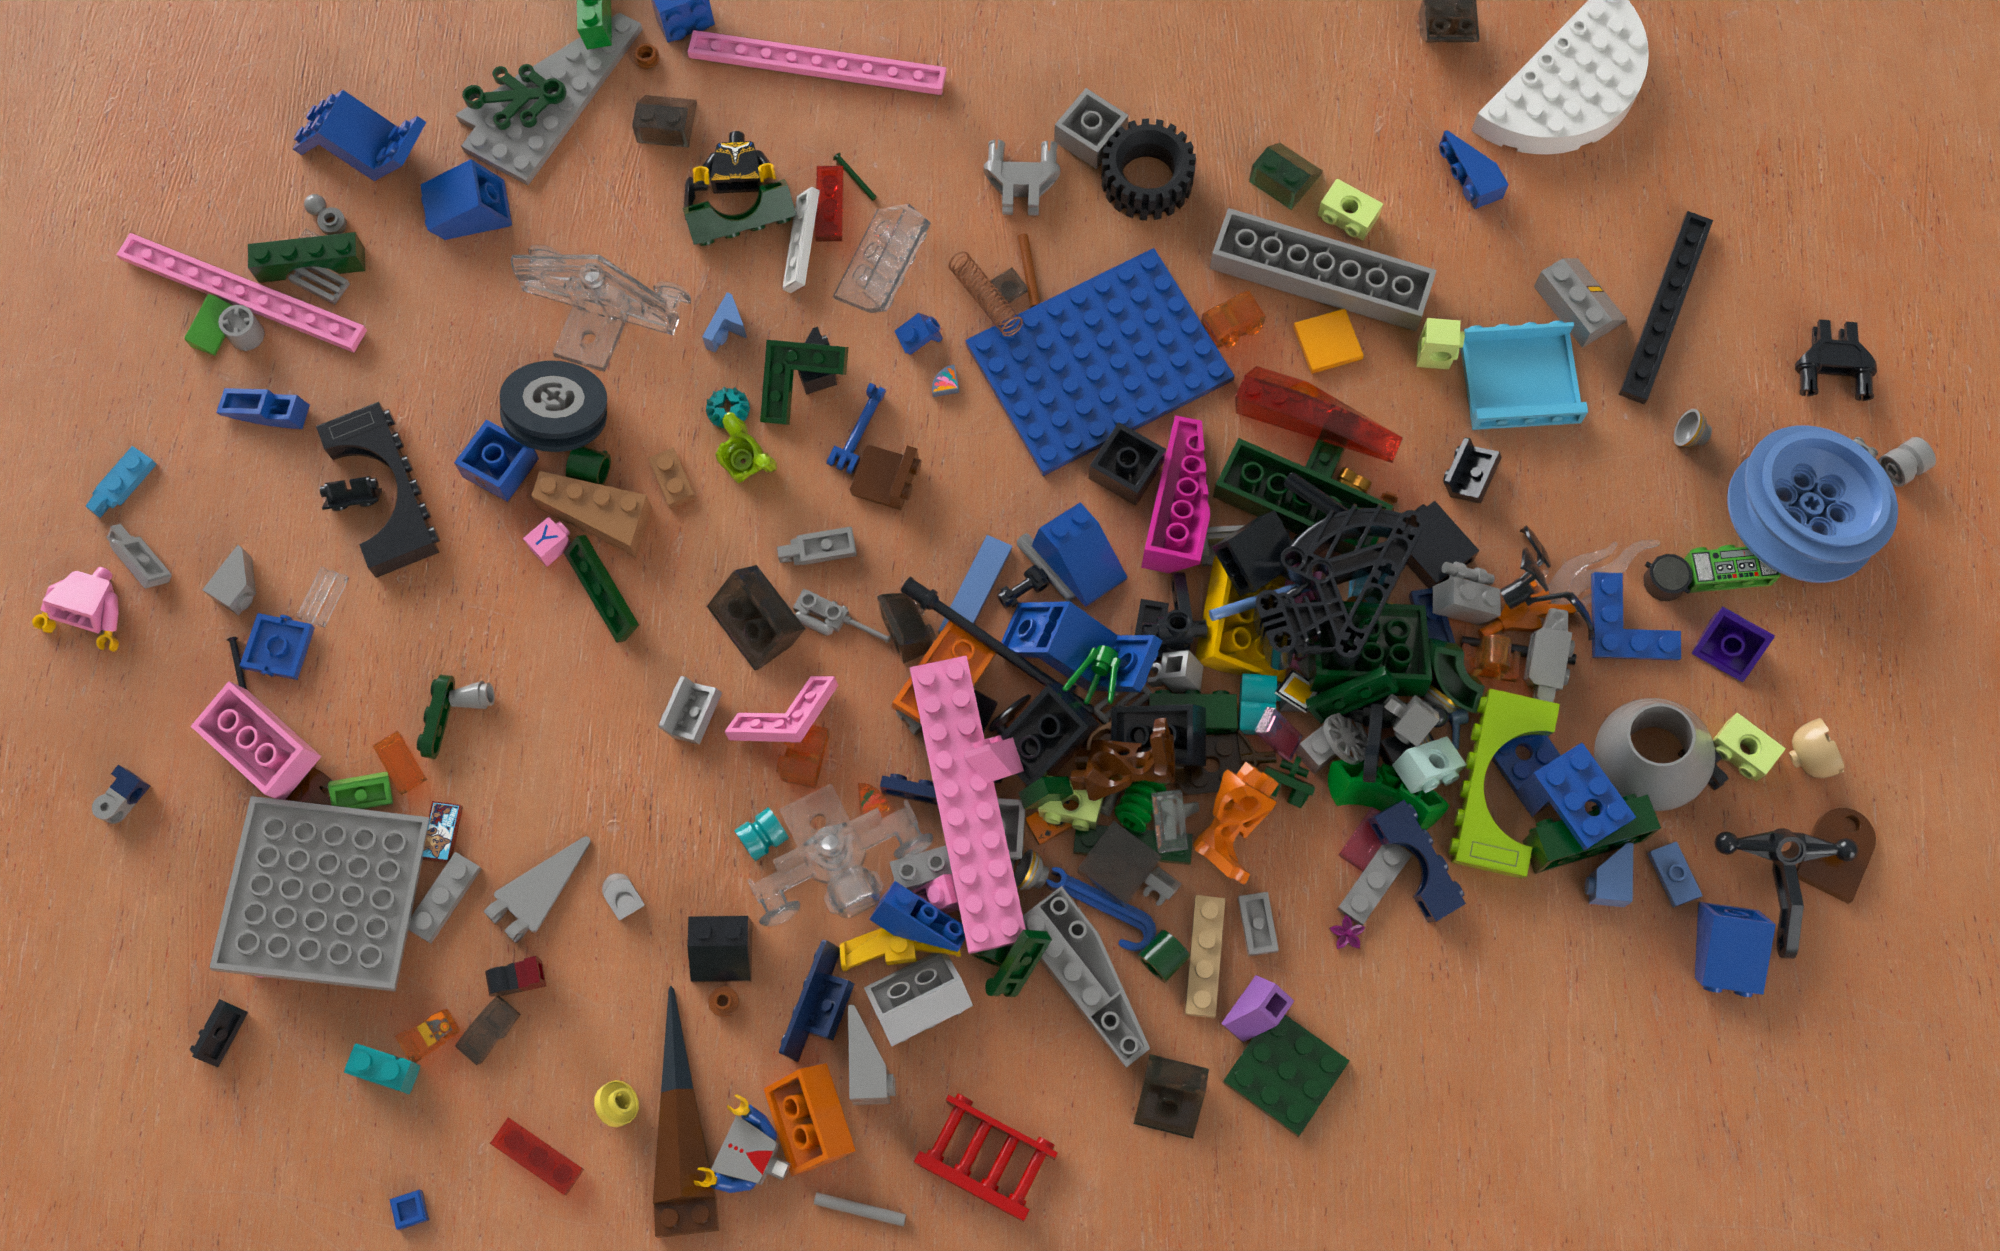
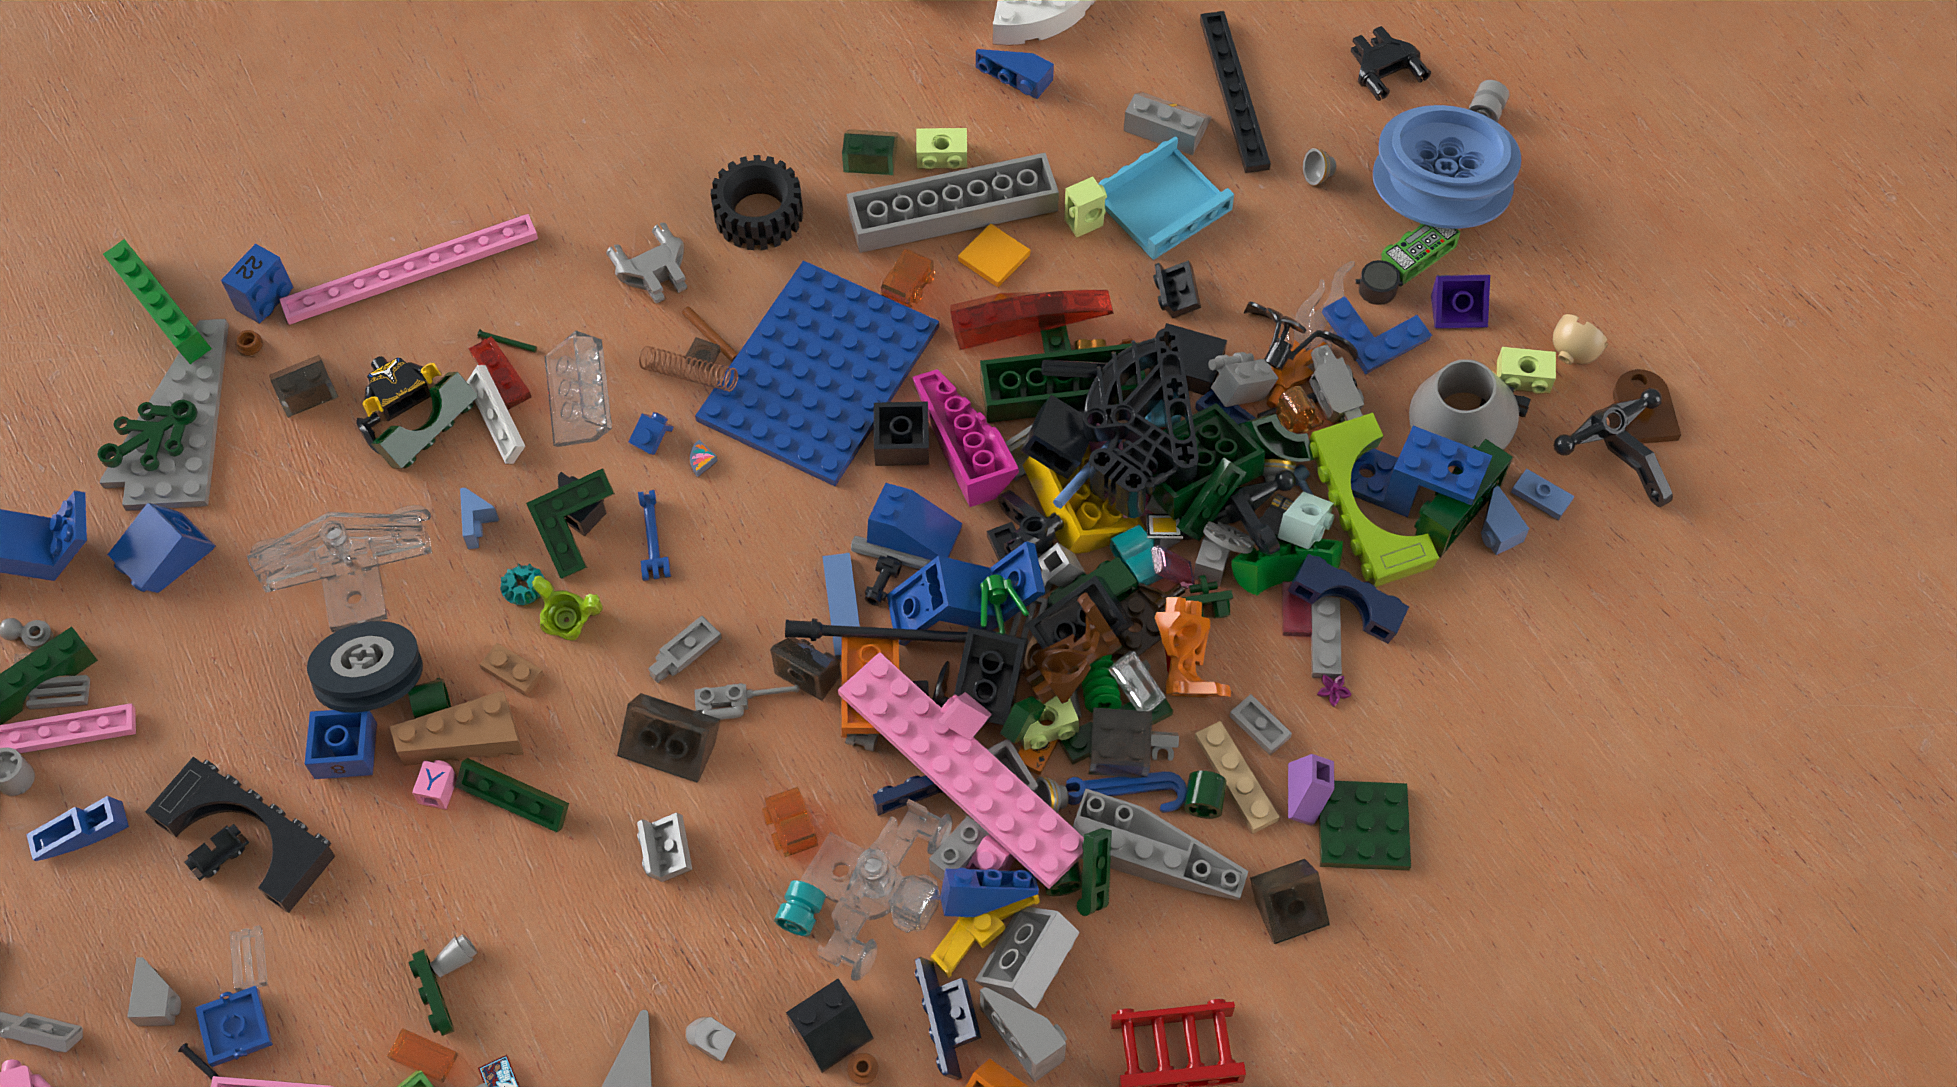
camera: 35 degrees left, 10 degrees down
(788, 726) = (767, 799): bright pink plate -> none
(871, 798) = (871, 824): clear orange tile -> none
(886, 476) = (703, 559): reddish brown bracket -> none
(1087, 127) = (686, 196): light grey brick -> none
(1412, 720) = (1271, 490): light grey brick -> none
(1732, 949) = (1625, 520): blue slope -> none

